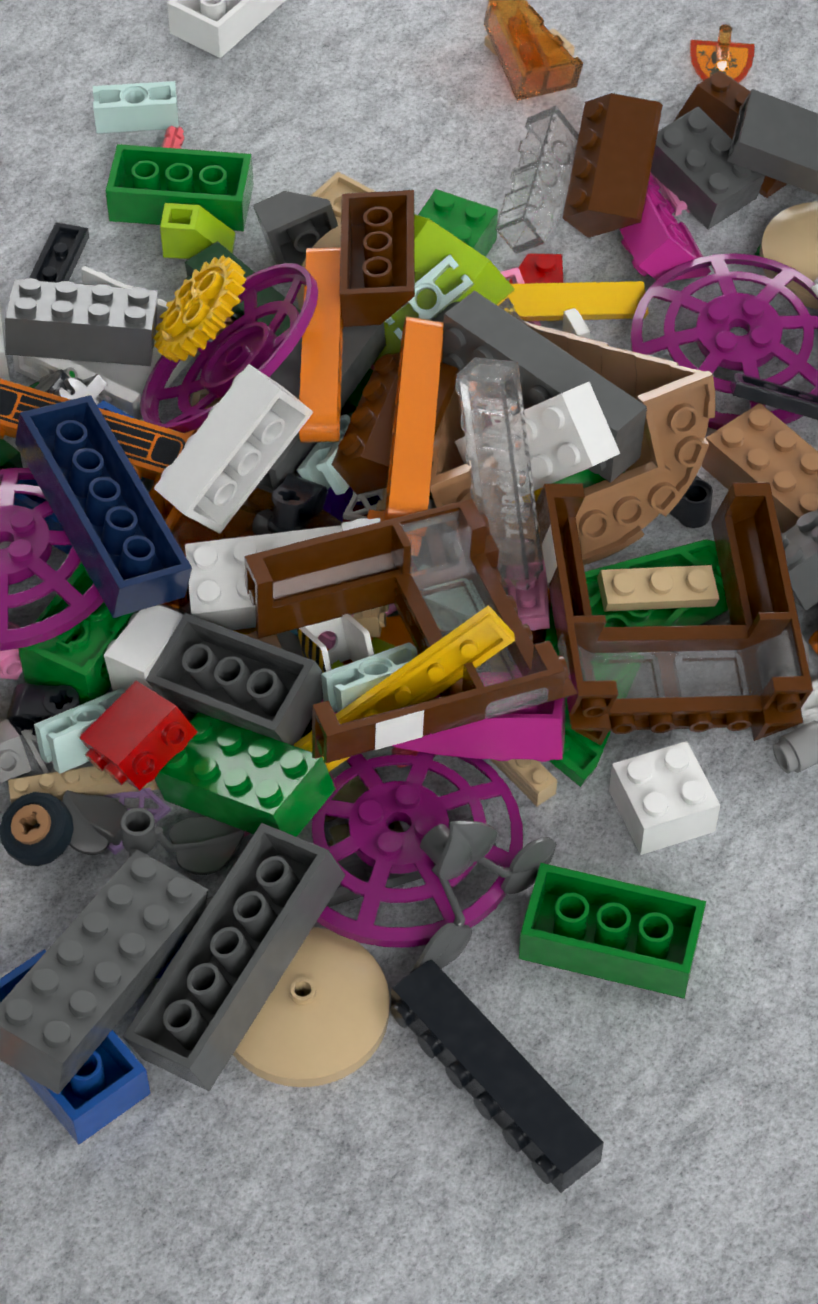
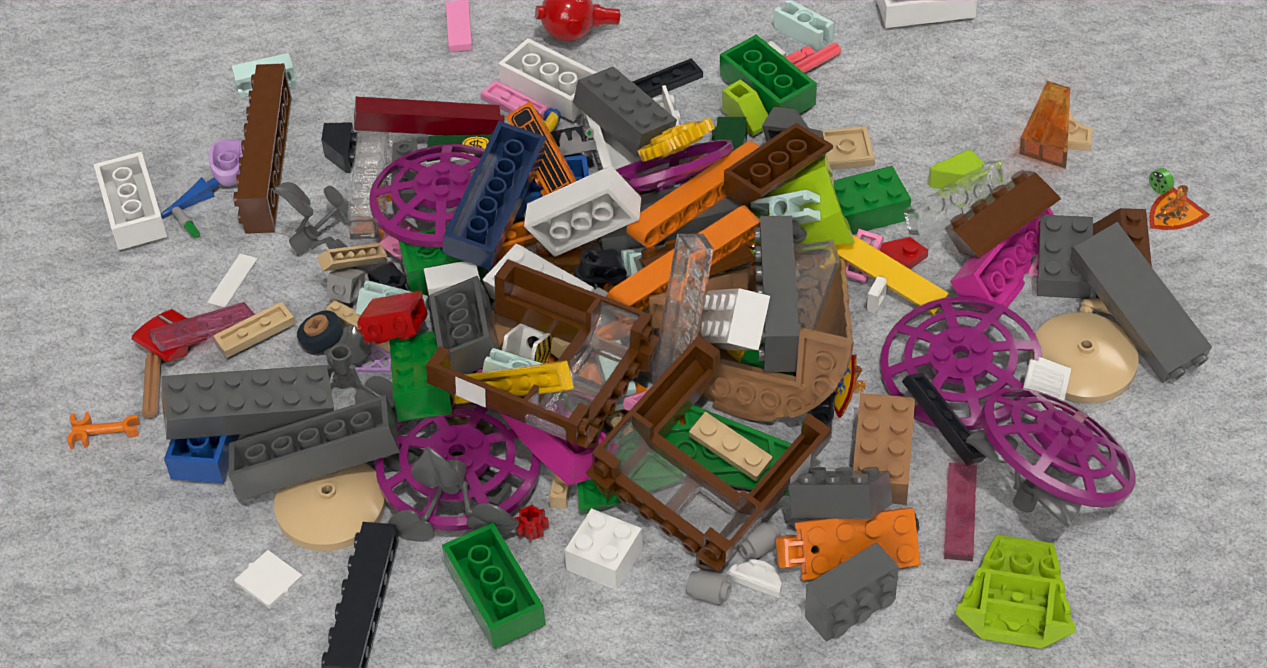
camera: 50 degrees right, 5 degrees down
(195, 127) = (819, 57): none -> coral axle
(348, 1149) = (268, 579): none -> white piece
(493, 155) = (953, 169): none -> lime slope
(557, 827) = (531, 522): none -> red gear
(682, 38) = (1161, 180): none -> bright green tile
(778, 196) = (1090, 305): none -> tan arm

